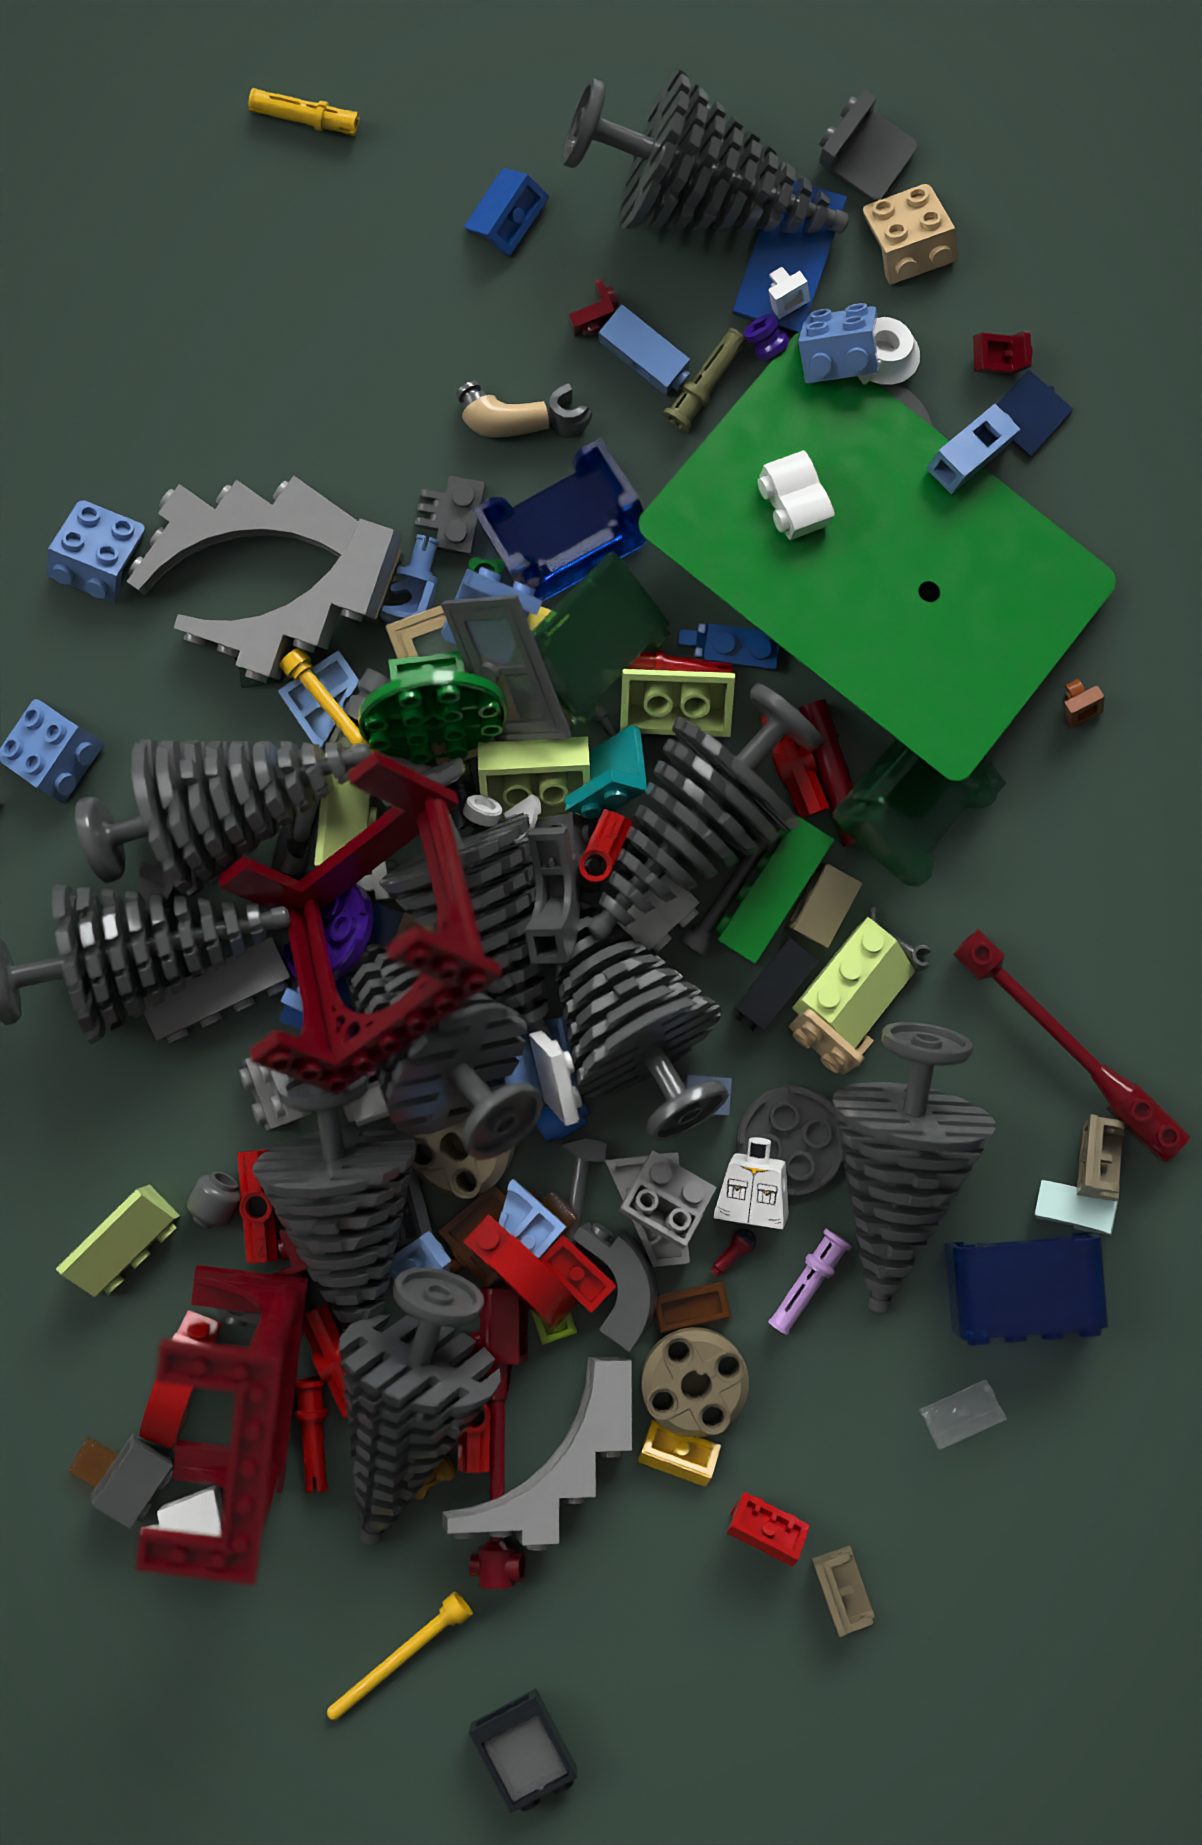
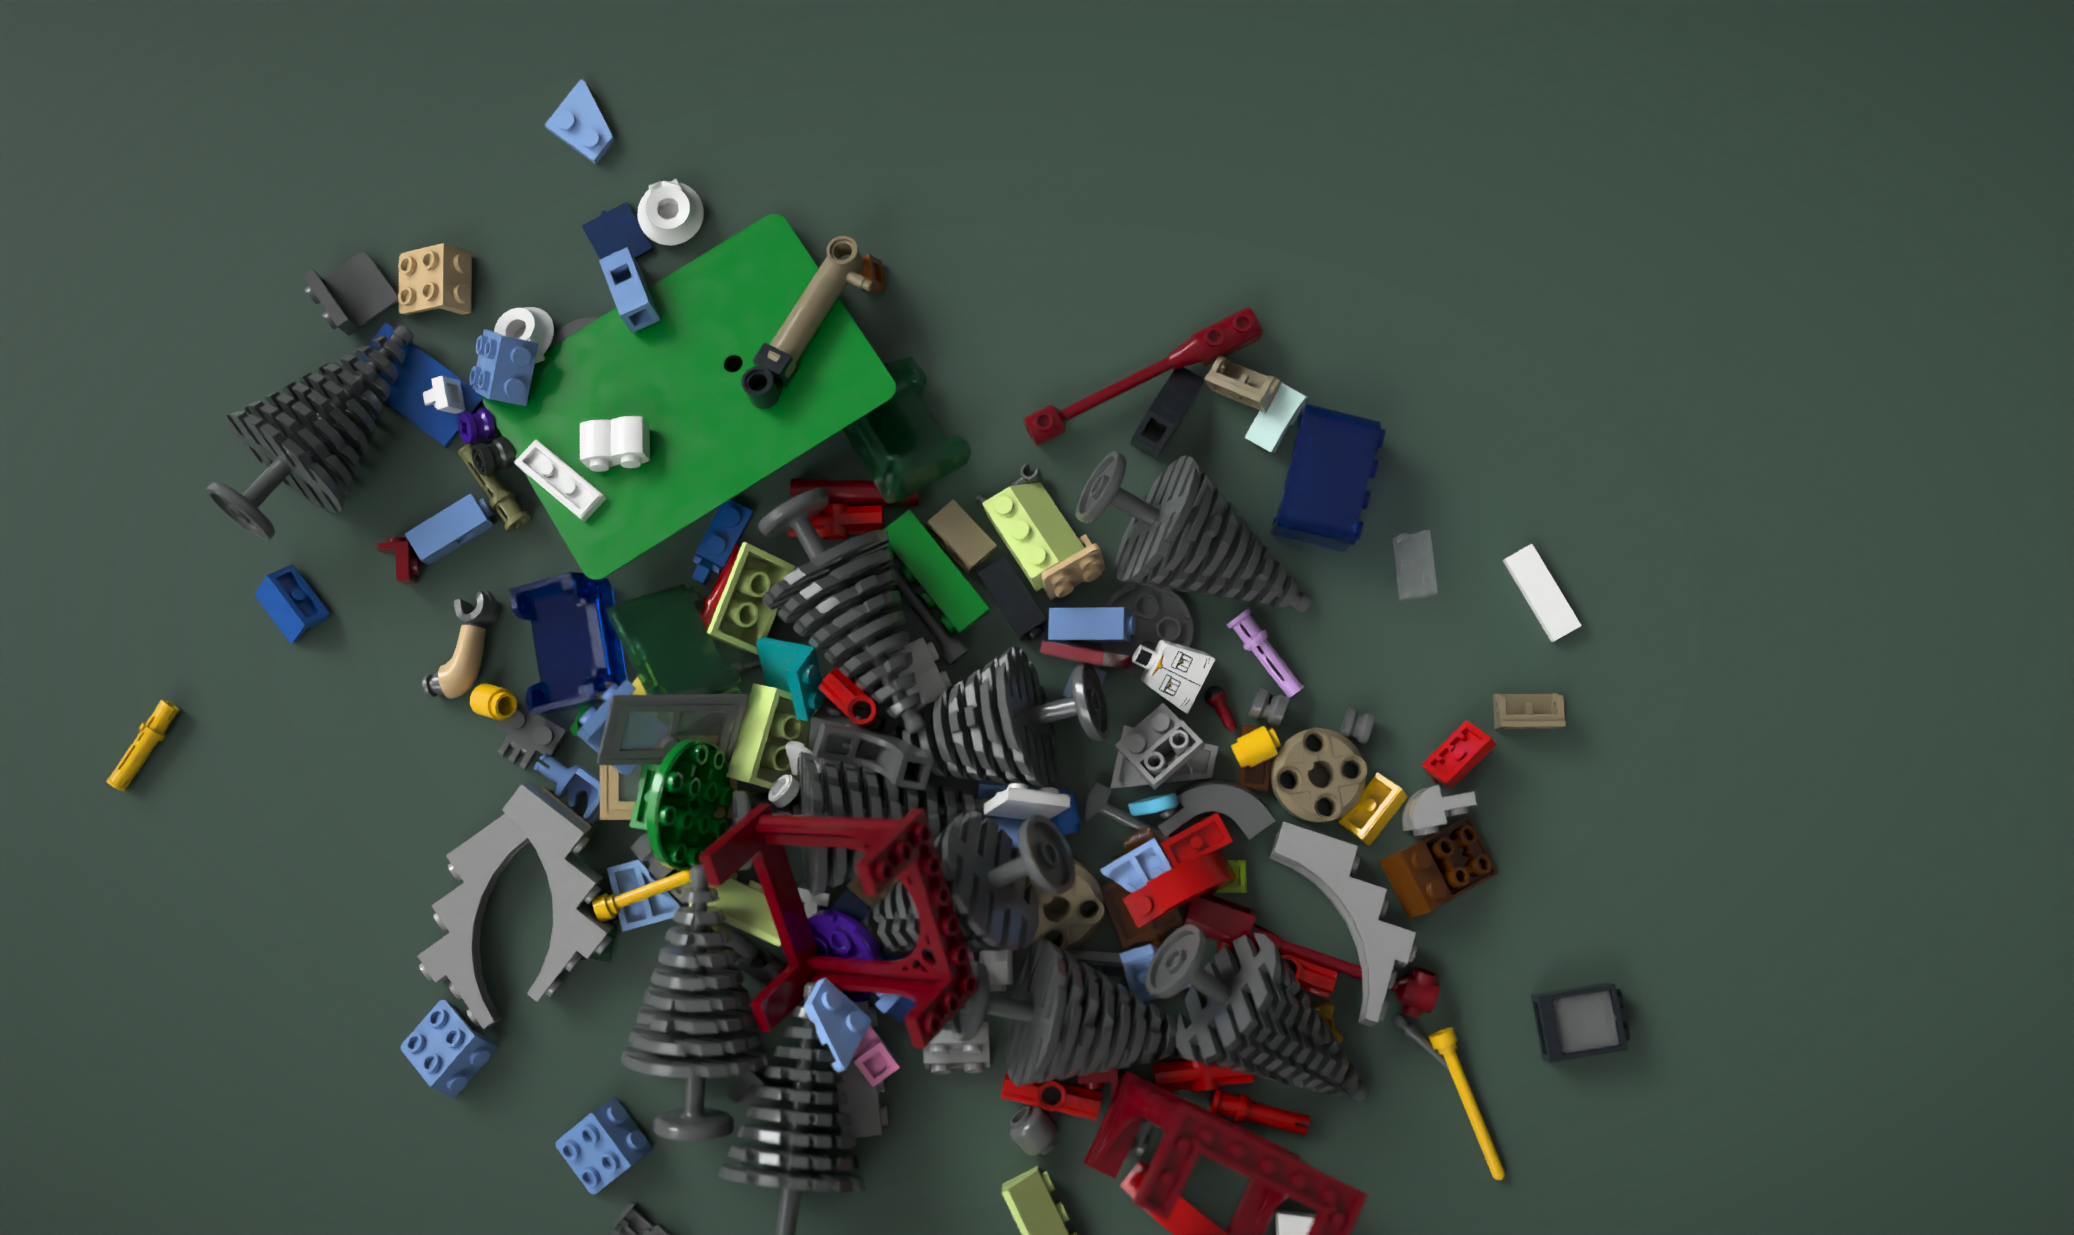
camera: 75 degrees left, 5 degrees down
(240, 993) = (874, 1058): none -> bright pink slope
(255, 954) = (836, 1021): none -> light blue wing
(453, 1571) = (1412, 1032): none -> dark grey piece
(473, 465) = (493, 701): none -> yellow brick
(602, 1213) = (1153, 804): none -> medium azure tile
(639, 1545) = (1438, 867): none -> reddish brown slope
(697, 1513) = (1429, 809): none -> light grey brick
(702, 1304) = (1256, 747): none -> yellow brick
(735, 451) = (560, 480): none -> white tile
(738, 368) = (493, 456): none -> pearl dark grey wheel
(738, 1087) = (1086, 654): none -> dark red tile
(751, 1303) = (1268, 706): none -> dark grey wheel
(764, 1407) = (1357, 725): none -> dark grey wheel
(774, 1081) = (1091, 625): none -> medium blue brick
(949, 640) = (778, 360): none -> dark tan piece
(980, 1564) = (1541, 593): none -> white tile
(1002, 353) = (560, 241): dark red bracket -> none
(1041, 1085) = (1166, 412): none -> black slope
(1076, 461) = (670, 212): none -> white piece
(1143, 327) = (581, 124): none -> light blue wing

